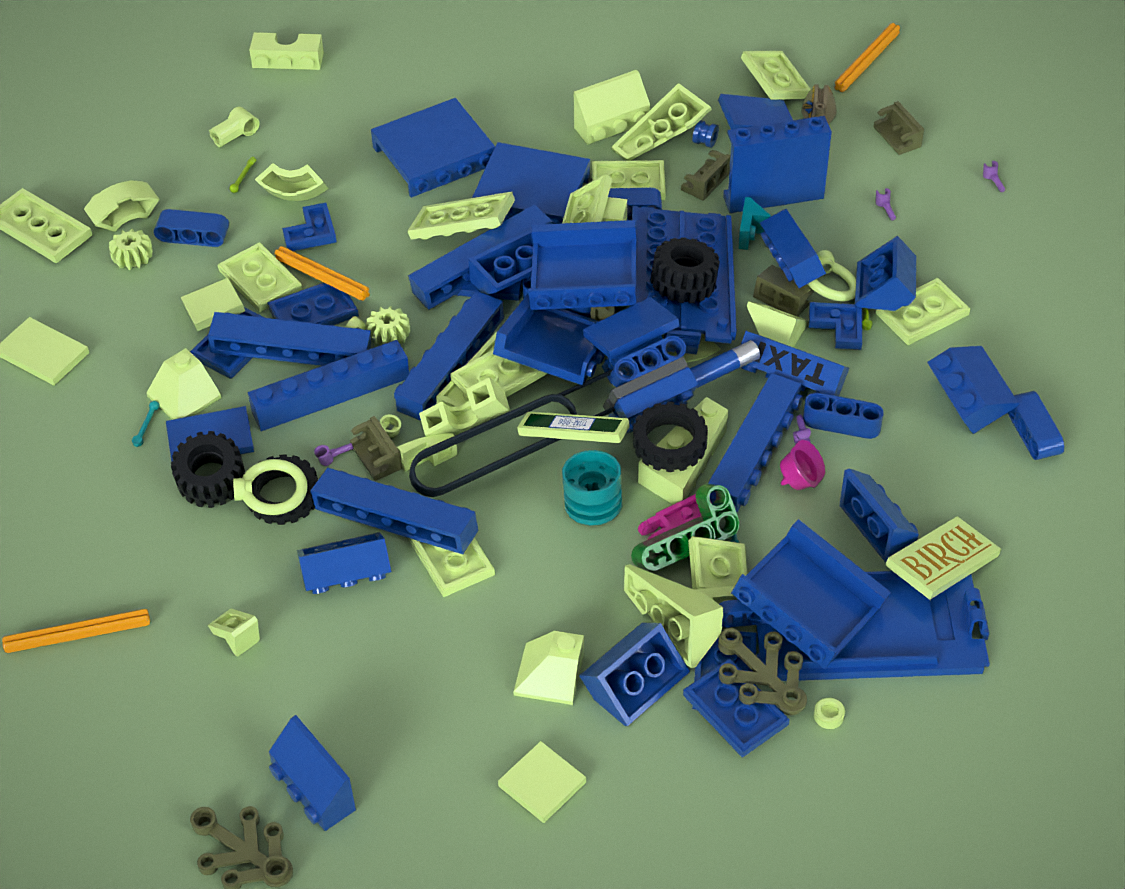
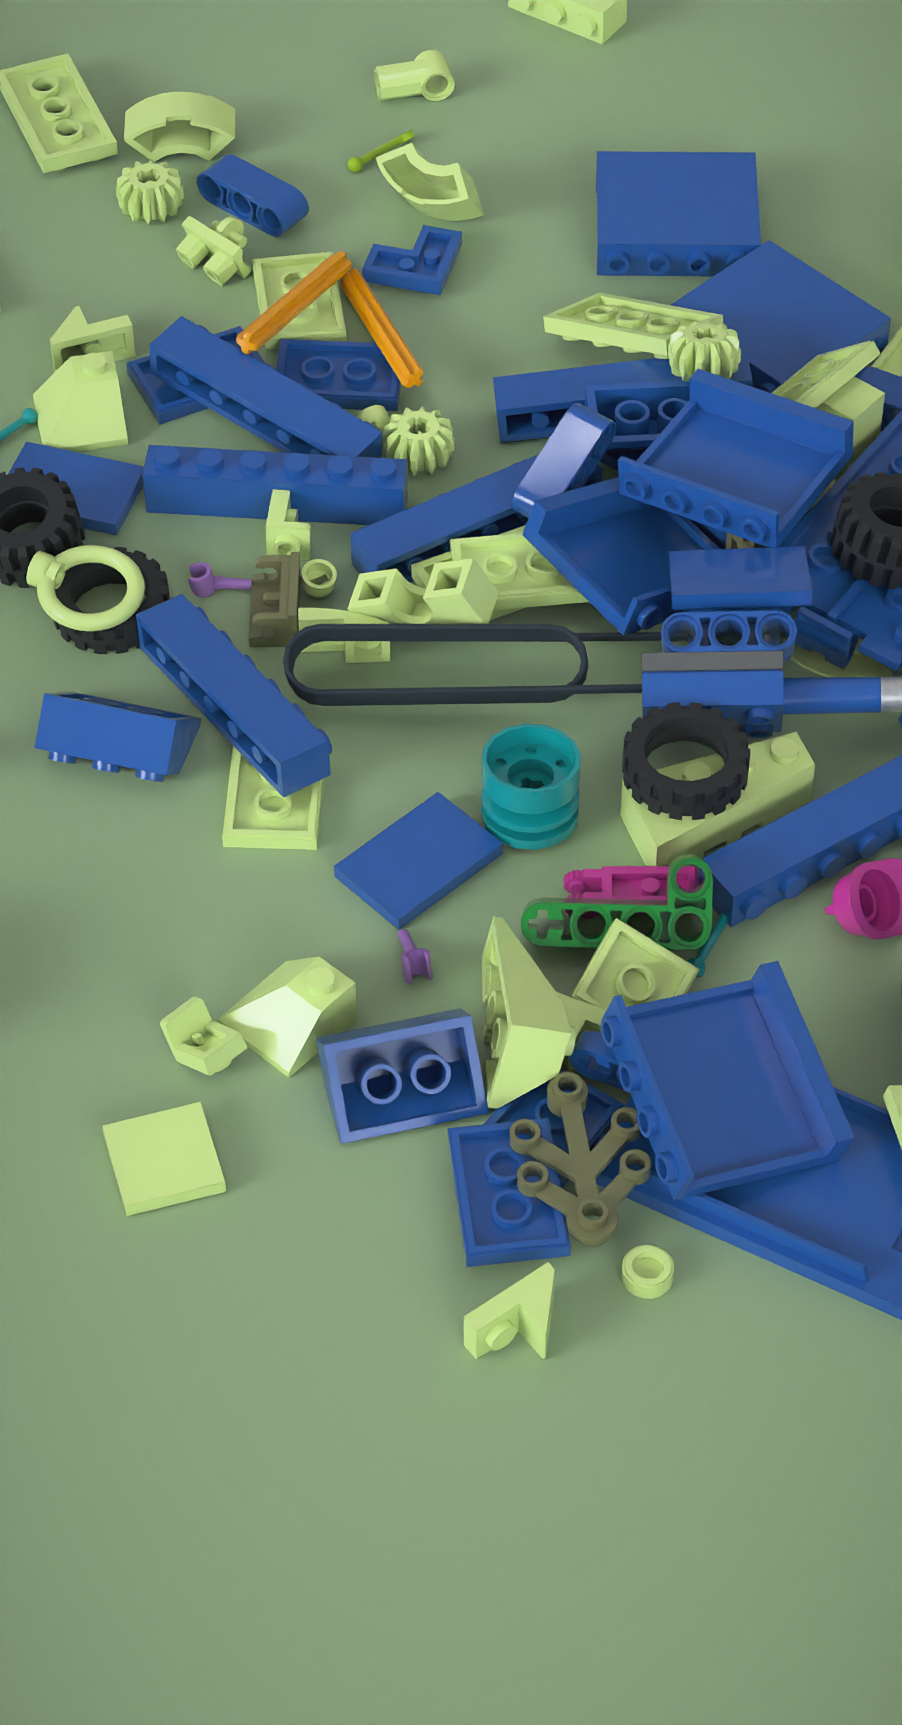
camera: 30 degrees right, 0 degrees up
(158, 350) = (79, 338): none -> yellowish green slope
(193, 262) = (220, 242): none -> yellowish green hips
(211, 299) = (215, 306): yellowish green tile -> none
(268, 279) = (293, 302): none -> light orange axle
(352, 411) = (283, 530): none -> yellowish green bracket
(490, 305) = (566, 458): none -> beam
(518, 708) = (200, 1040): none -> yellowish green bracket
(521, 214) = (704, 348): none -> yellowish green gear
(554, 555) = (418, 860): none -> blue tile
(573, 427) = (559, 686): tile -> none
(595, 608) = (414, 960): none -> medium lavender hand
(790, 766) = (519, 1308): none -> yellowish green slope

